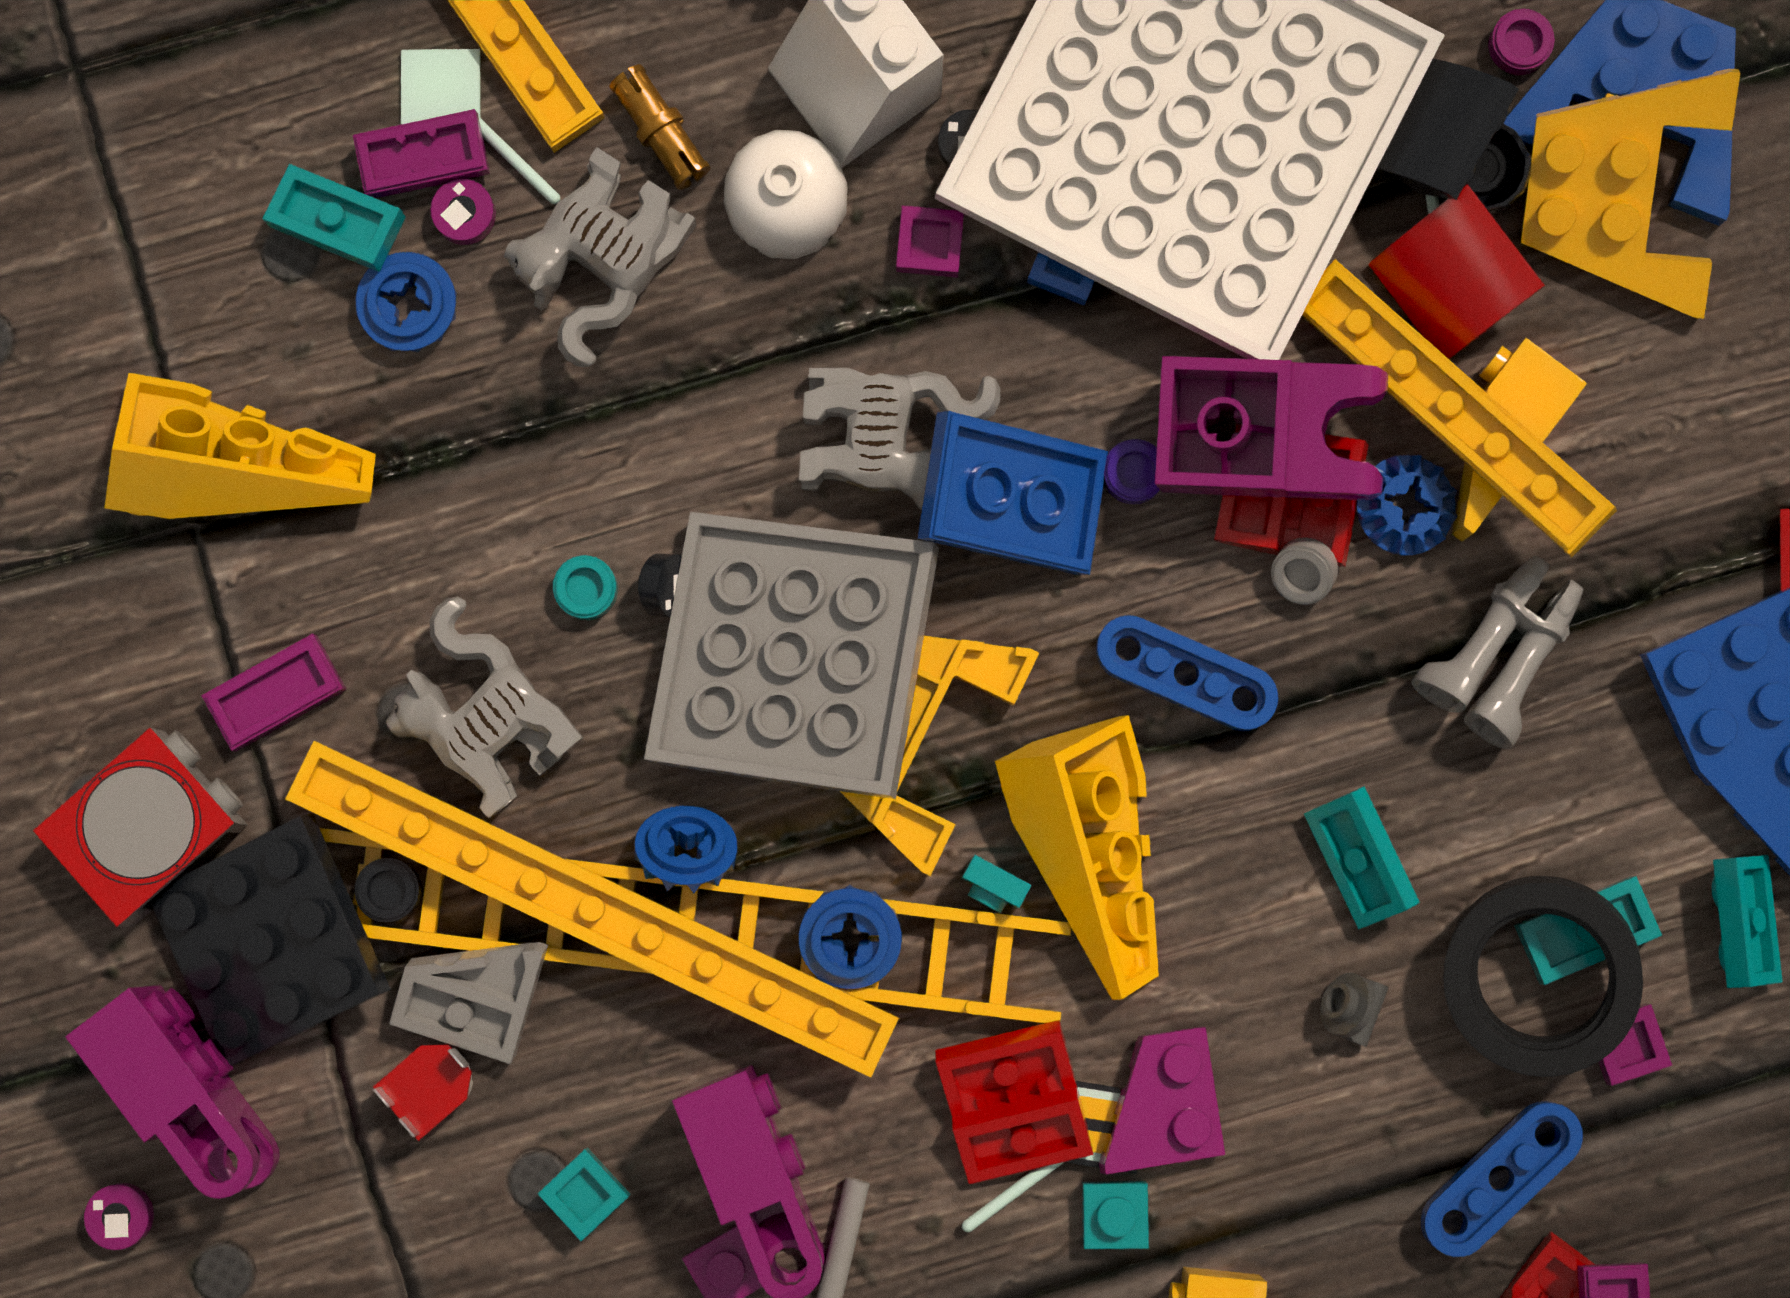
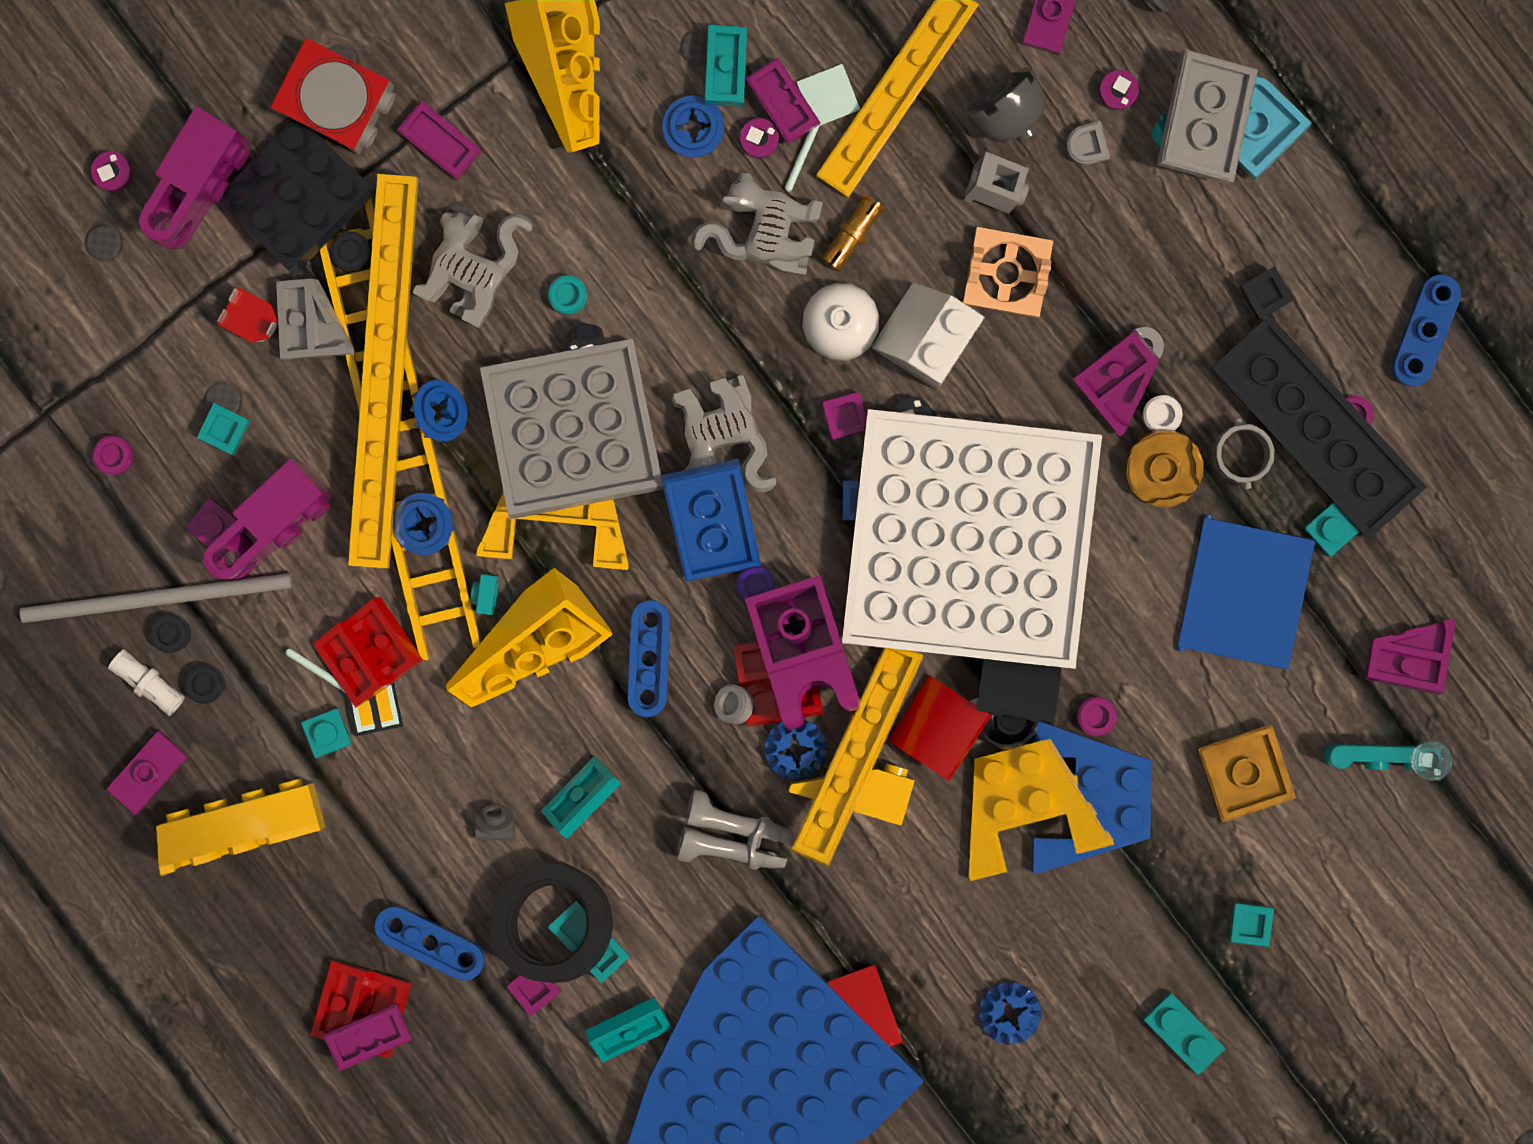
camera: 70 degrees right, 5 degrees up
(1167, 1106) = (399, 738): magenta wing -> none

